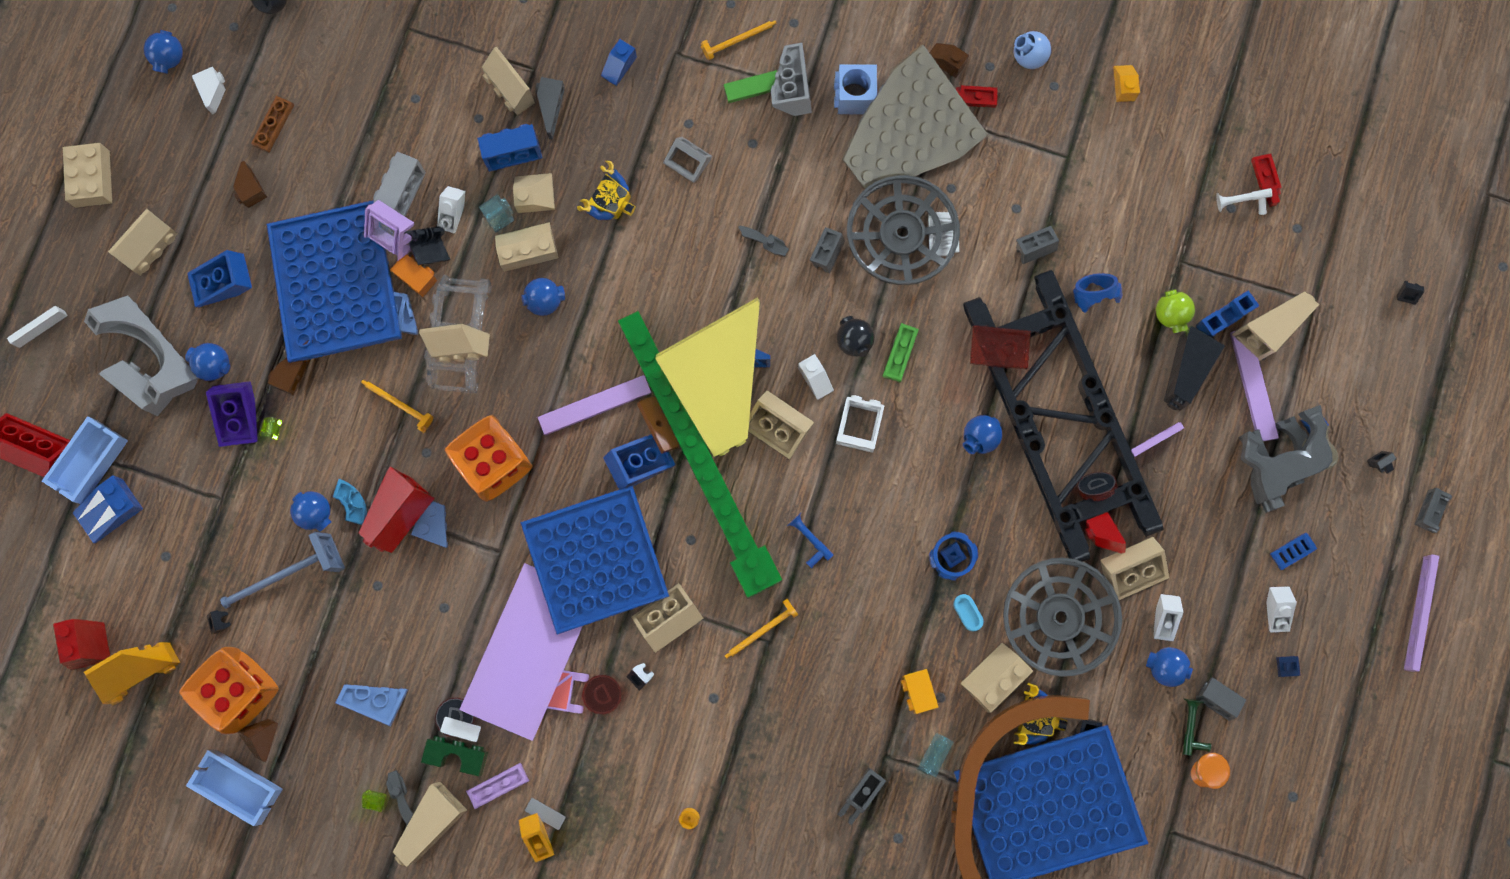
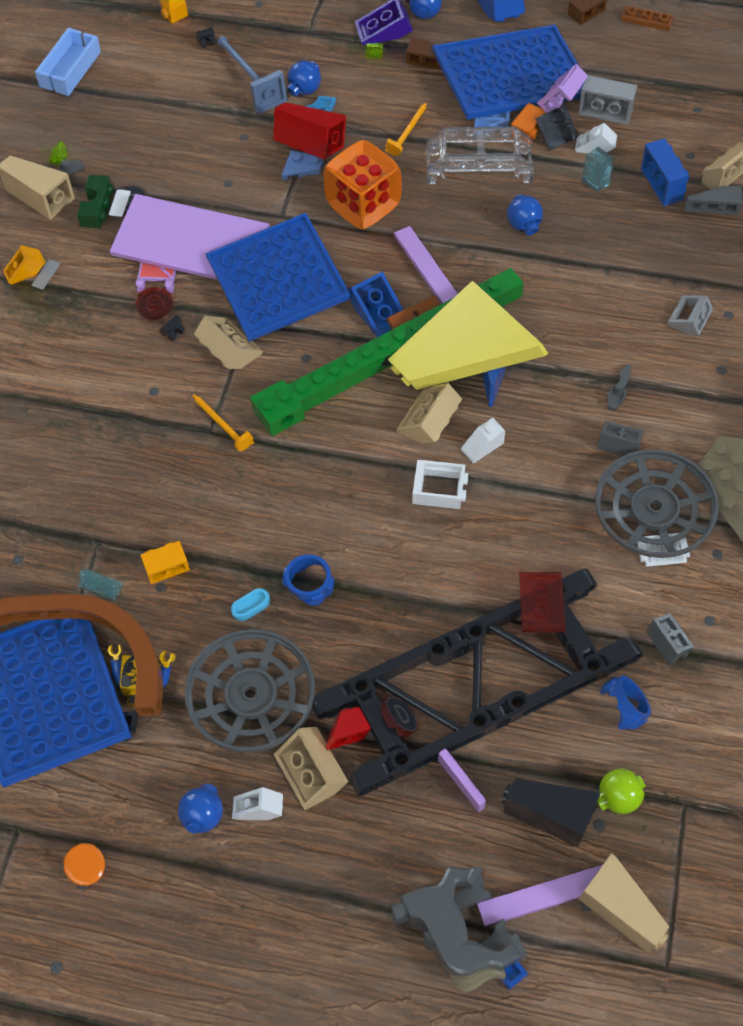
camera: 85 degrees right, 20 degrees down
(229, 690) = (146, 42): orange piece -> none
(259, 737) = (108, 72): reddish brown slope -> none
(373, 702) = (141, 143): medium blue wing -> none
(455, 343) = (462, 138): tan slope -> none
(497, 785) = (70, 237): lavender tile -> none
(526, 247) = (571, 199): tan slope -> none
(533, 193) = (625, 199): tan slope -> none
(610, 197) = (635, 255): torso -> none
(689, 818) = (39, 379): light orange tile -> none
(823, 551) = (303, 466): blue piece -> none
(855, 337) = (531, 470): black brick -> none
(862, 794) = (61, 517): dark grey hinge -> none
(900, 352) = (523, 518): bright green tile -> none
(953, 554) = (310, 581): blue tile -> none
(982, 434) = (442, 594): blue brick -> none
(996, 677) = (178, 632): tan slope -> none
(1189, 736) = (115, 840): dark green piece -> none
(1221, 699) = (166, 871): dark grey hinge -> none
(1228, 314) = (613, 838): blue arch -> none
(1280, 609) = (275, 935): white slope -> none
(1288, 666) = (208, 952): dark blue tile -> none
(1306, 540) = (360, 964): blue slope -> none

